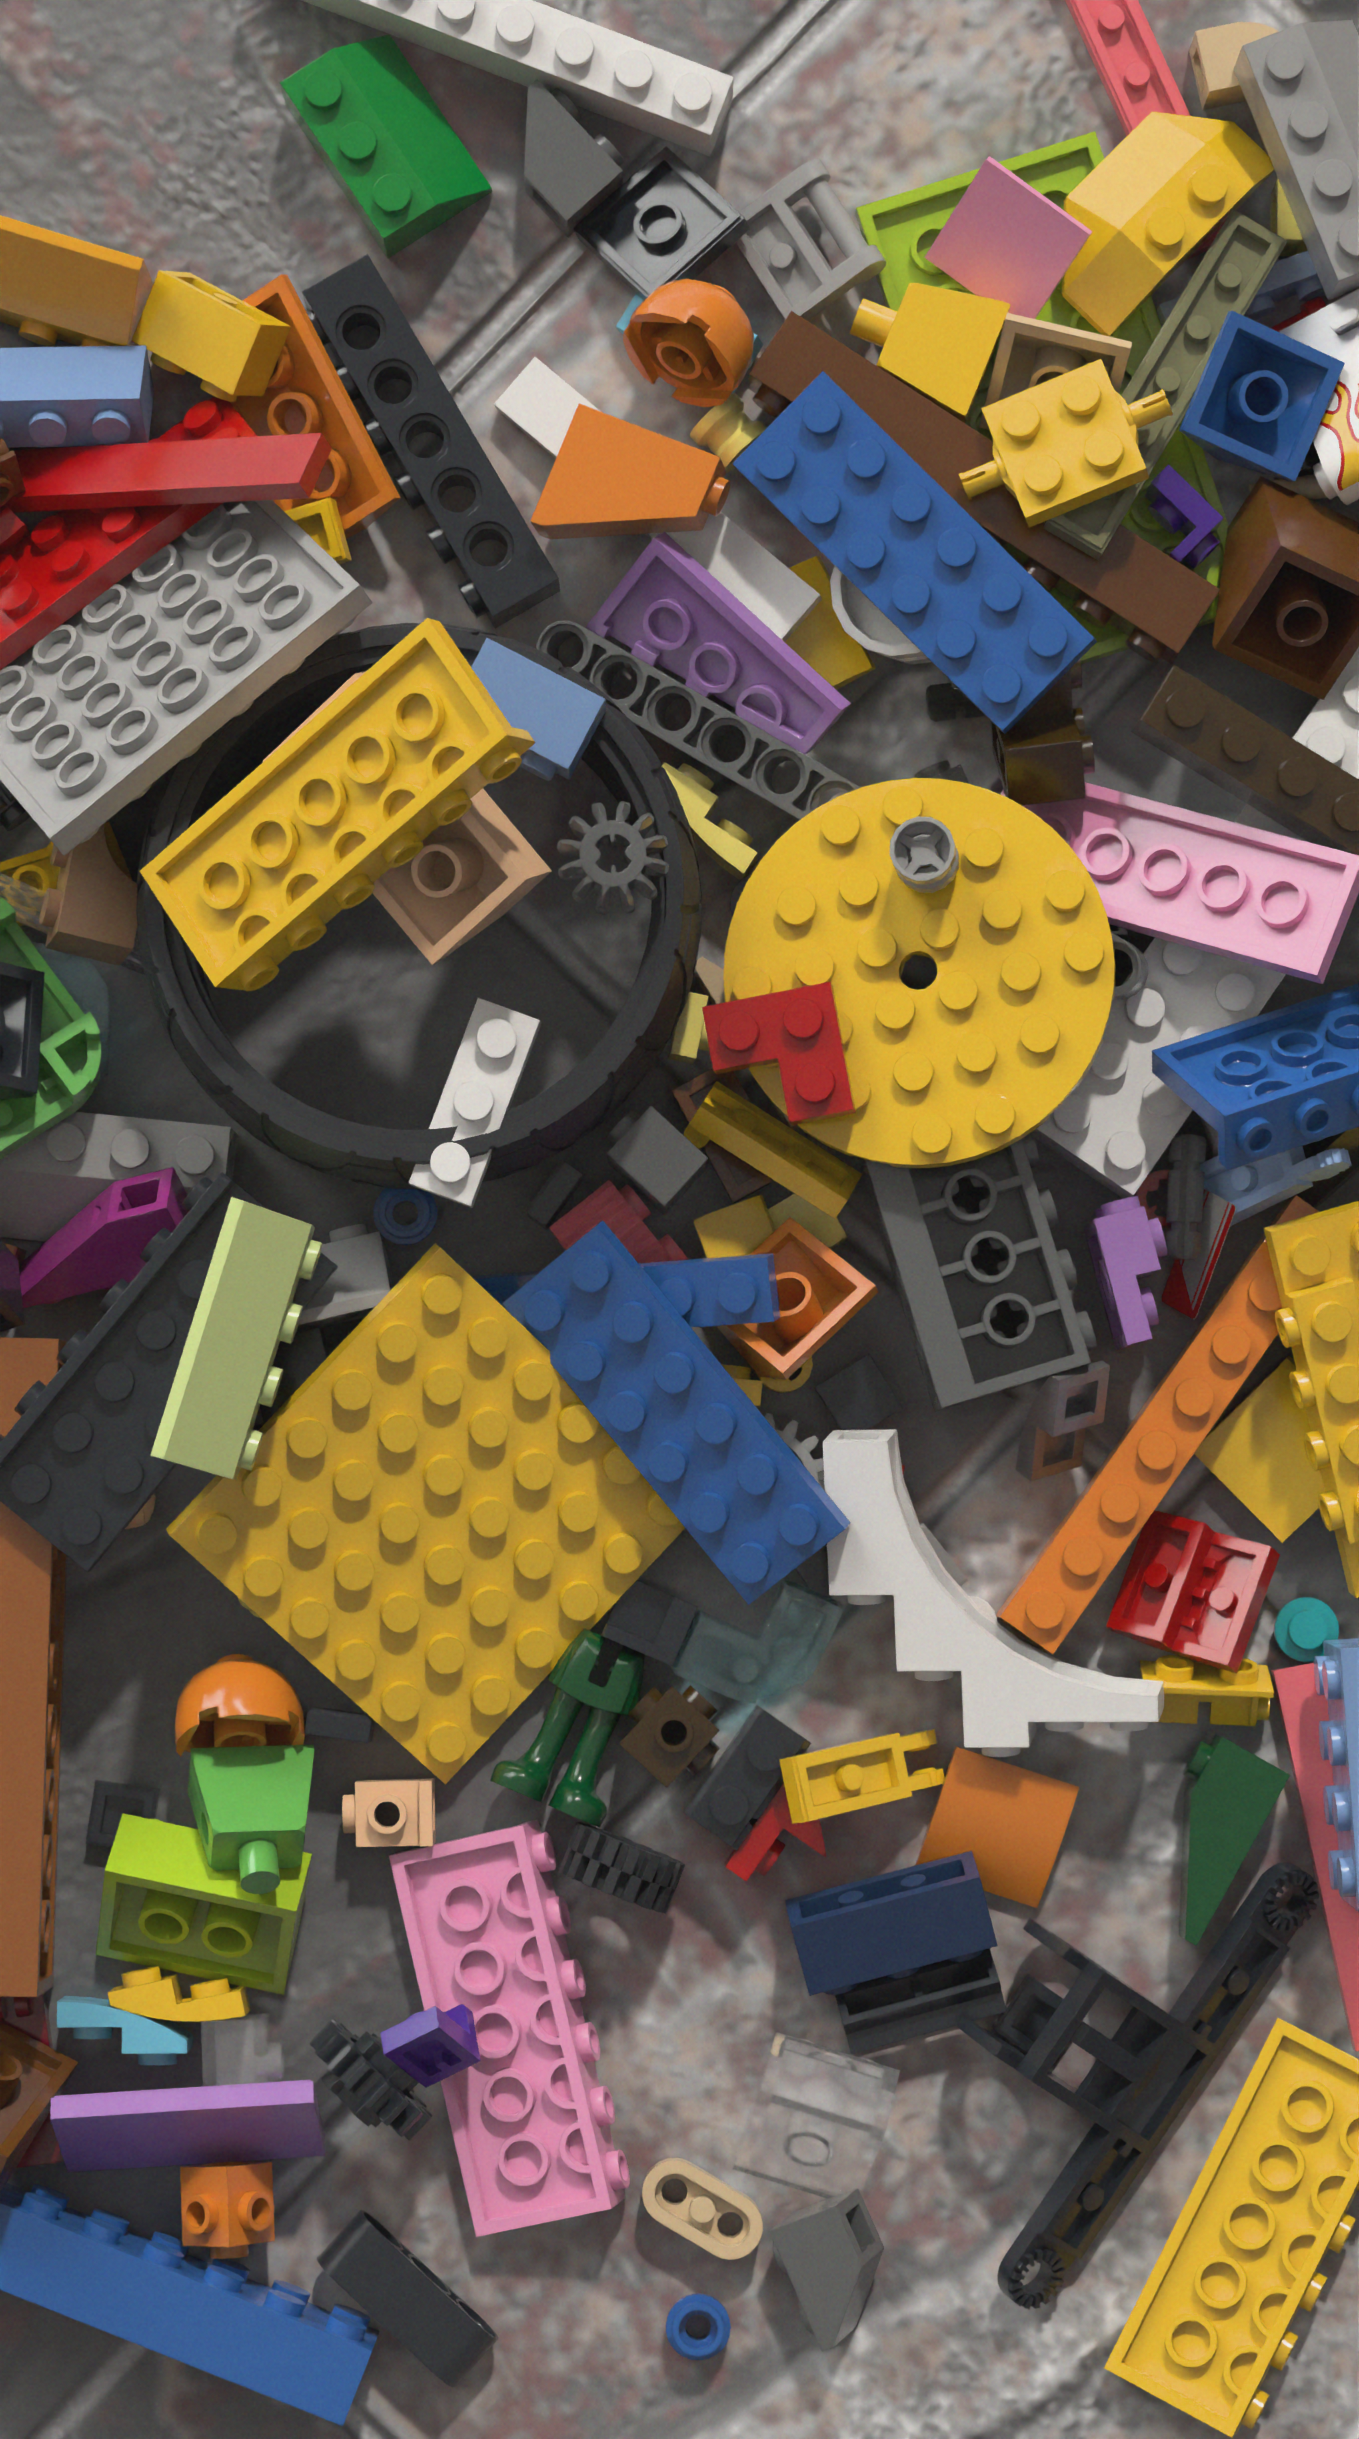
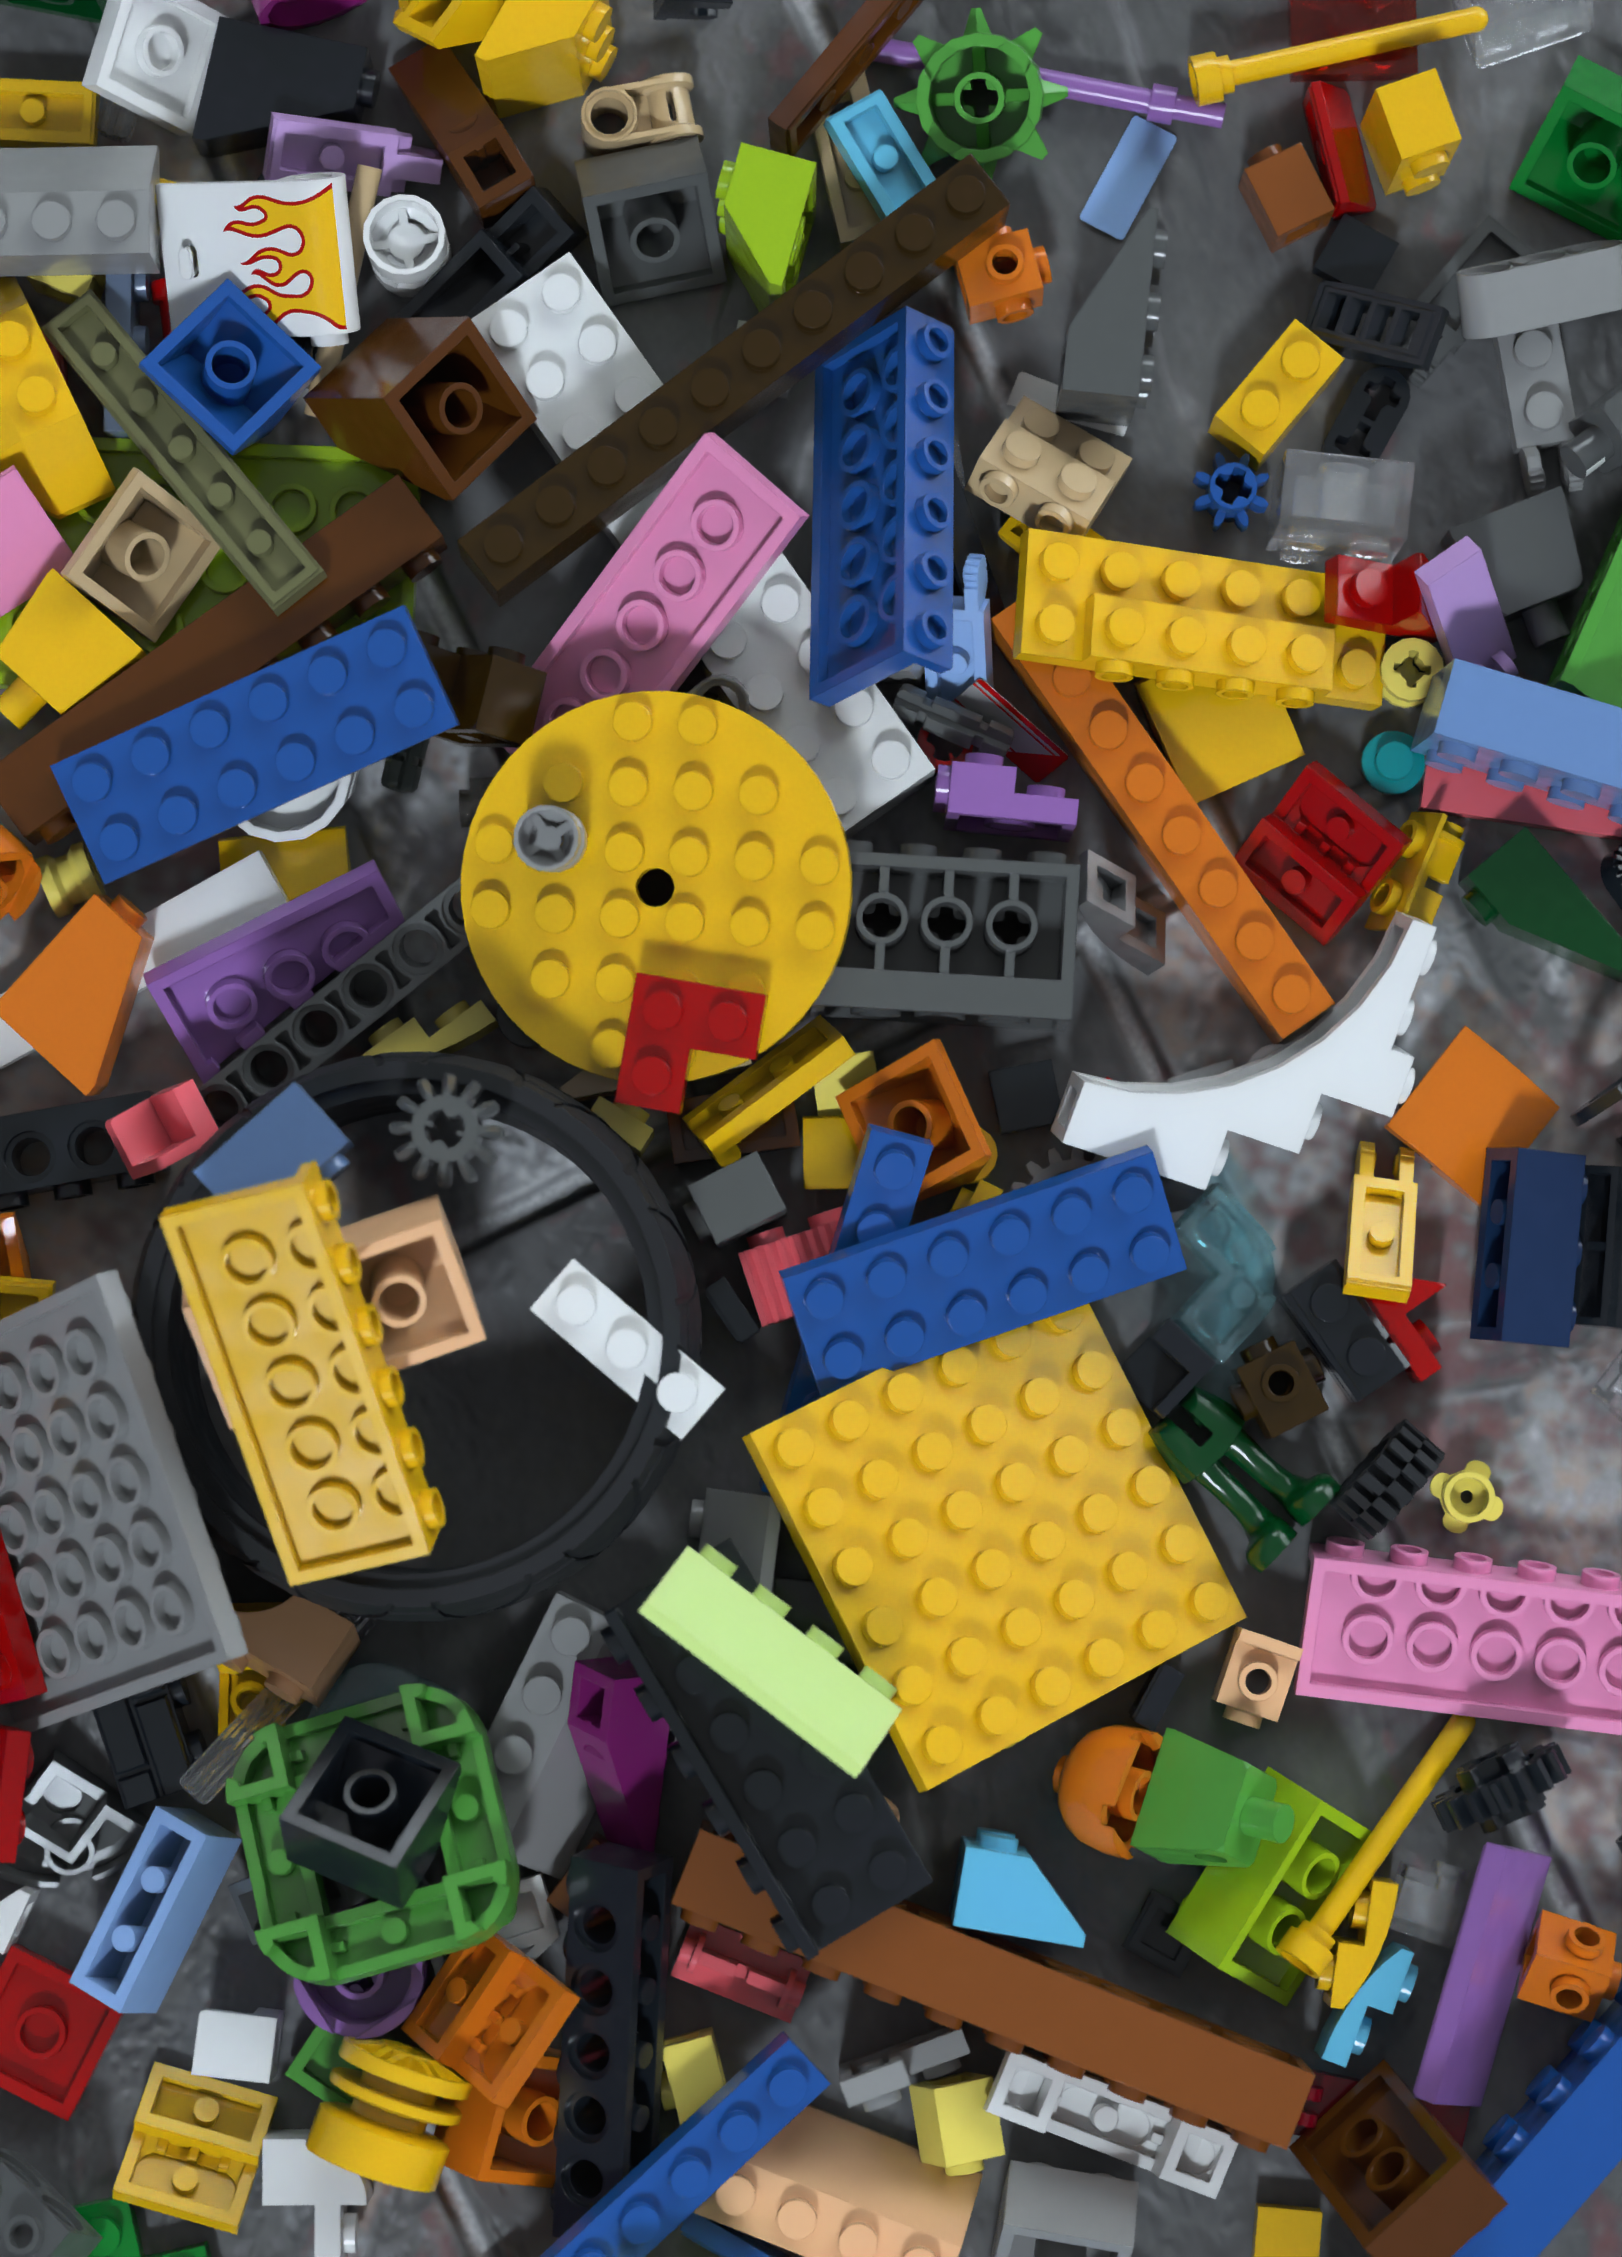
camera: 70 degrees left, 0 degrees up
(105, 1653) = (1007, 1893): none -> medium azure slope
(161, 1953) = (1311, 1942): none -> yellow piece
(412, 1233) = (716, 1460): blue plate -> none
(433, 2044) = (1490, 1715): dark purple bracket -> none
(525, 602) = (161, 1129): none -> coral panel
(634, 1933) = (1483, 1503): none -> light yellow plate
(1065, 443) = (206, 564): yellow plate -> none
(1182, 508) = (306, 481): dark purple bracket -> none

